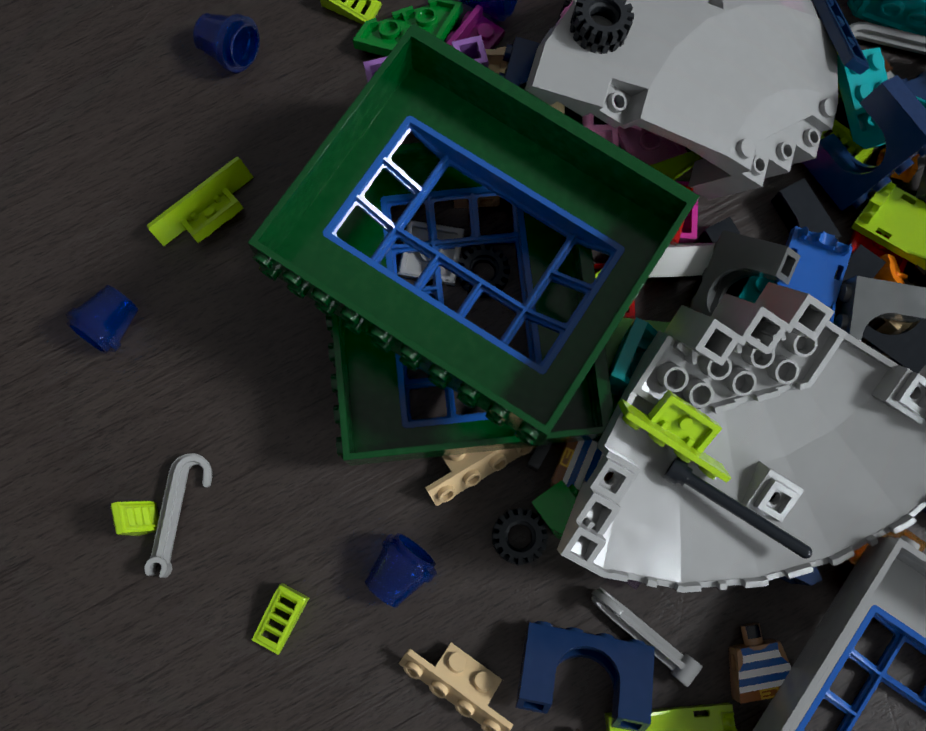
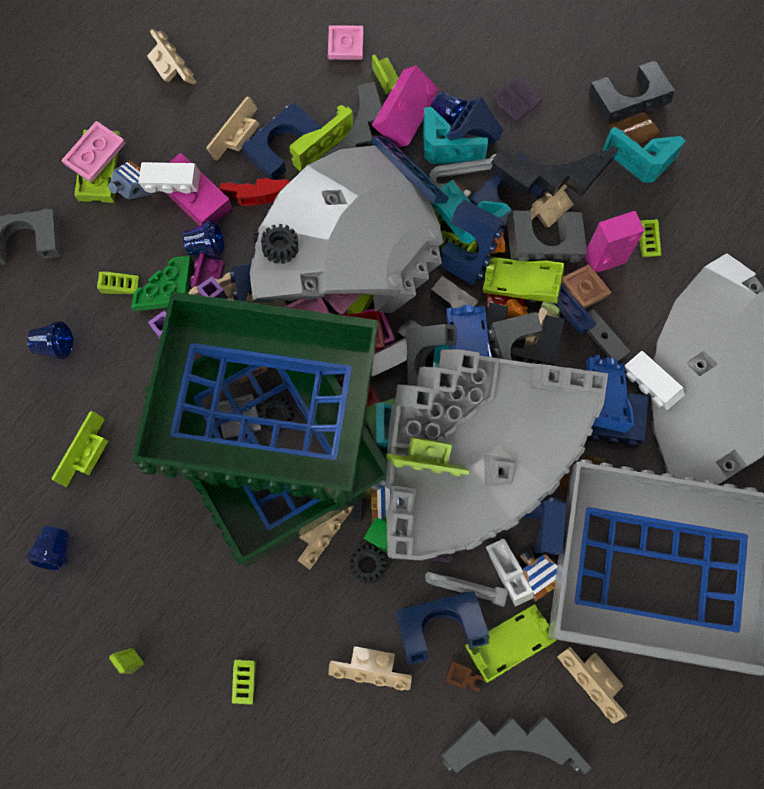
camera: 25 degrees left, 5 degrees down
(171, 511) = (145, 646): light grey piece -> none
(399, 570) = (304, 616): clear blue piece -> none
(682, 474) = (441, 481): black piece -> none
(716, 642) = (510, 572): none -> white slope
(812, 615) = (551, 528): none -> dark blue arch

